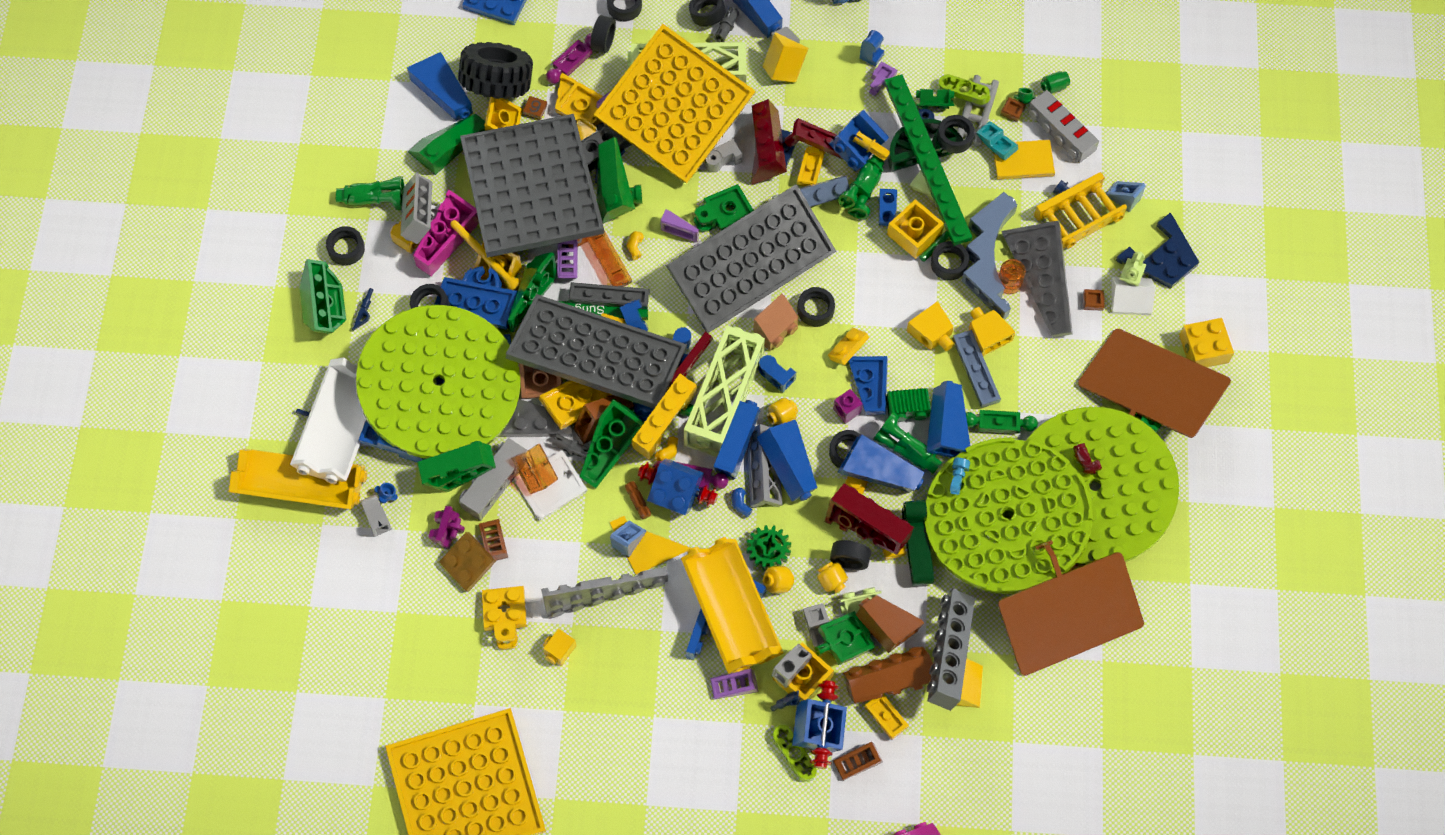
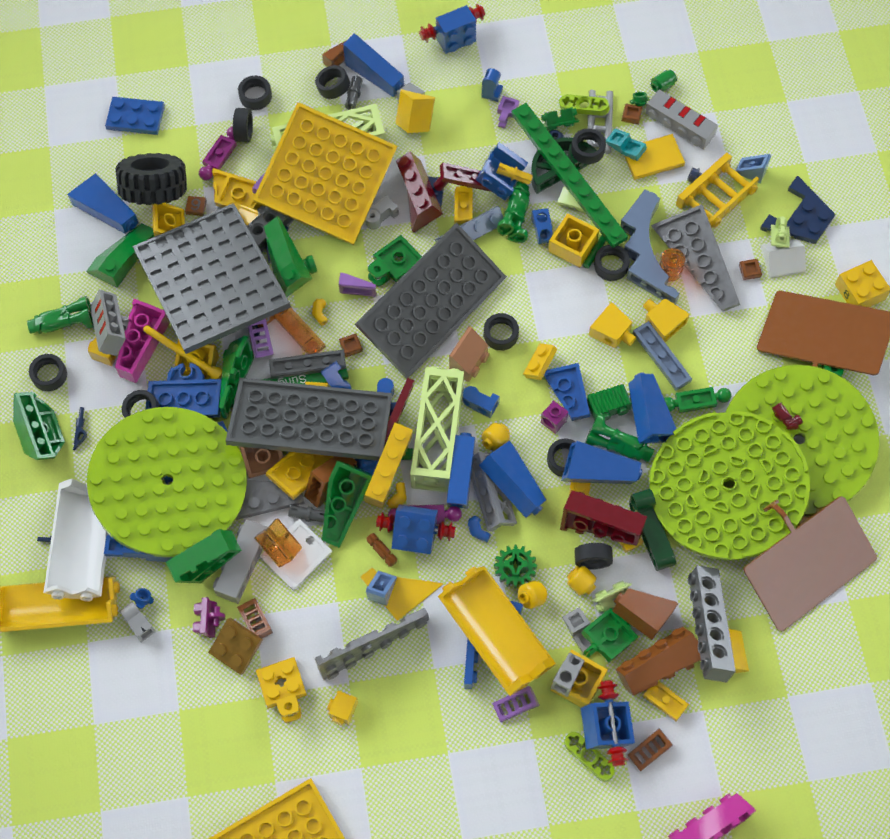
camera: 10 degrees left, 0 degrees up
(658, 286) = (350, 345): none -> dark orange tile
(790, 699) = (574, 706): dark blue hand -> none
(960, 465) = (674, 448): dark azure piece -> none

